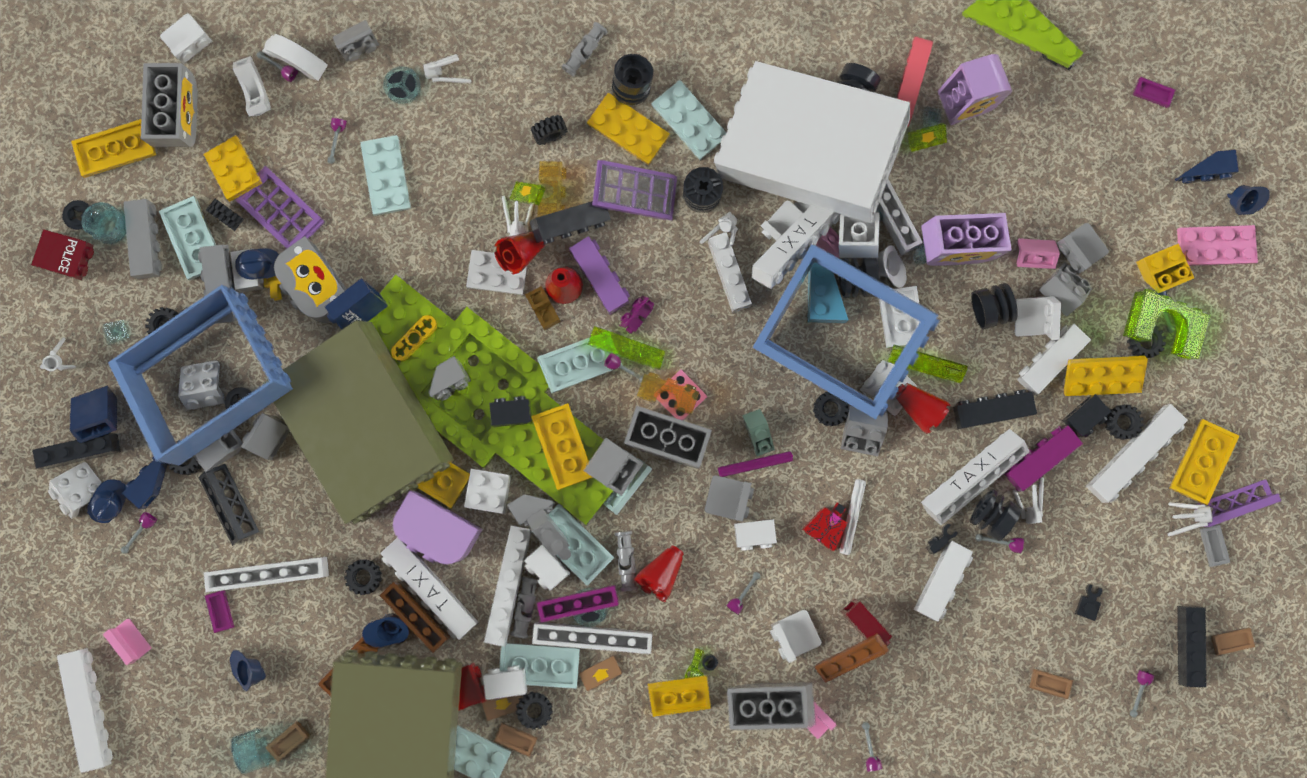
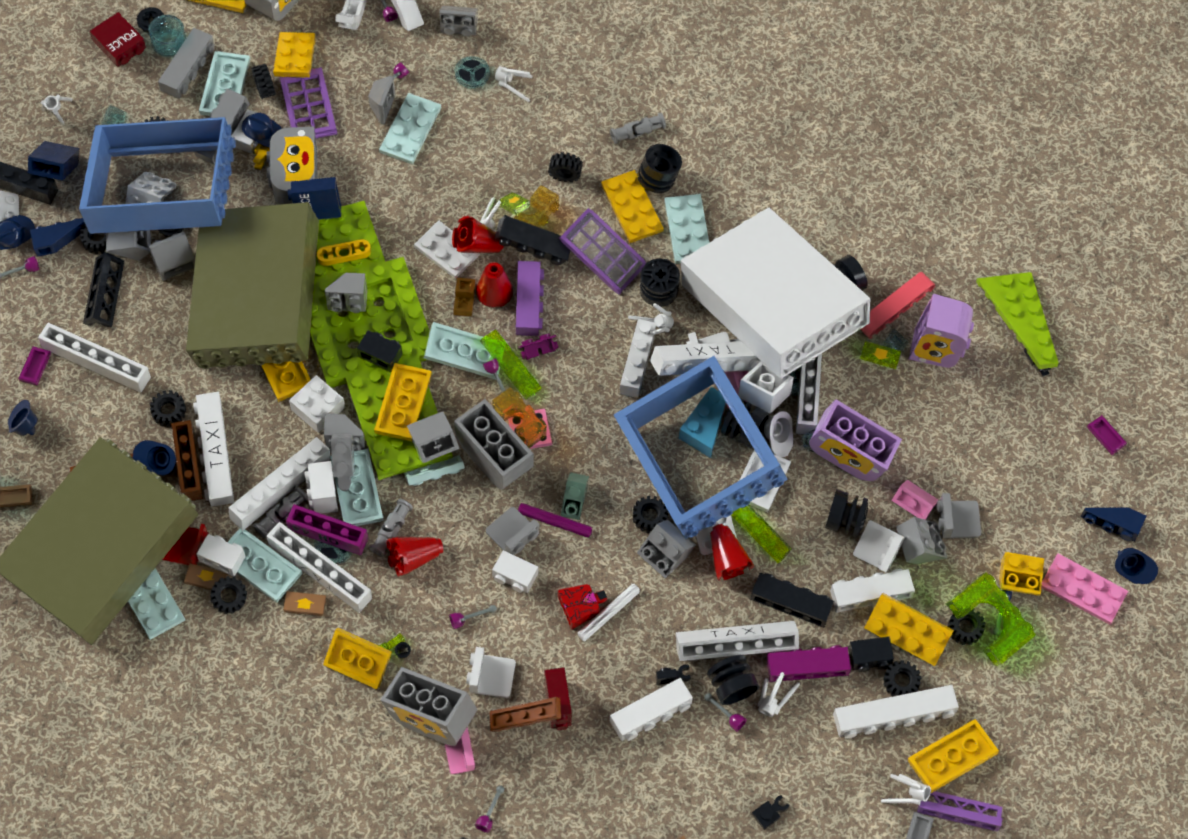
camera: 30 degrees right, 20 degrees down
(341, 163) = (382, 97): none -> light grey slope
(434, 530) = (253, 404): lavender brick -> none
(515, 739) = (195, 611): medium nougat tile -> none

